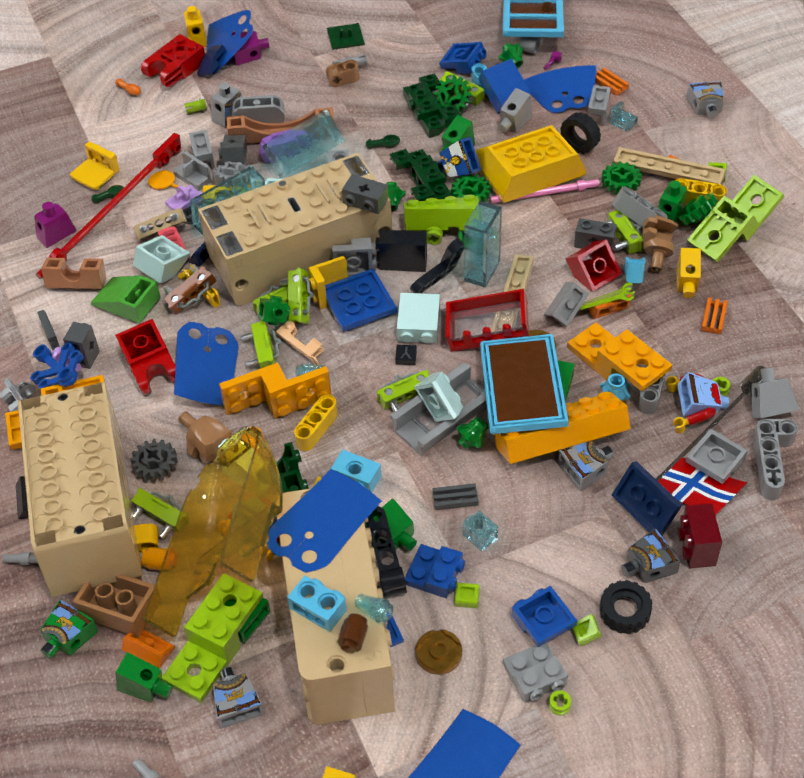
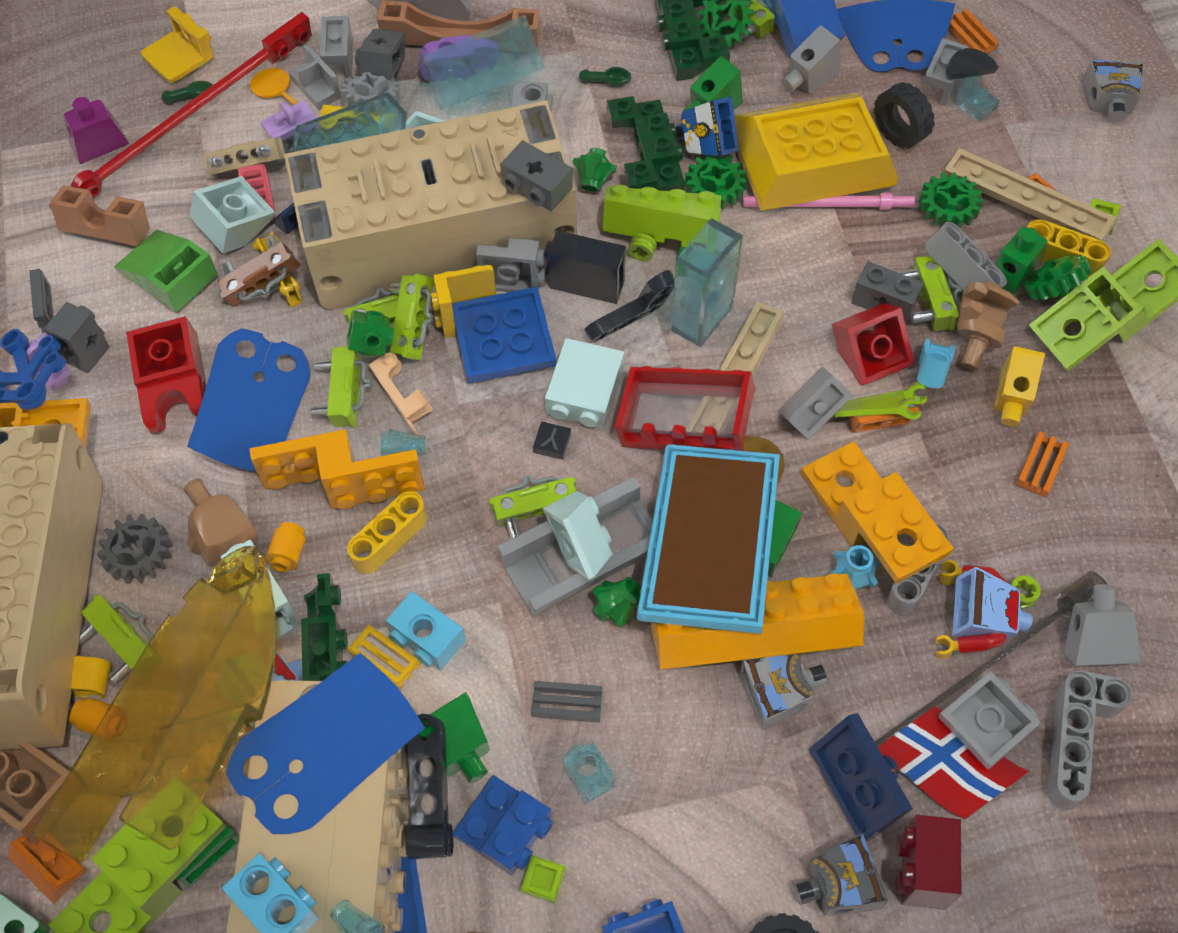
camera: 10 degrees right, 10 degrees up
(614, 96) = (970, 63): none -> black tile

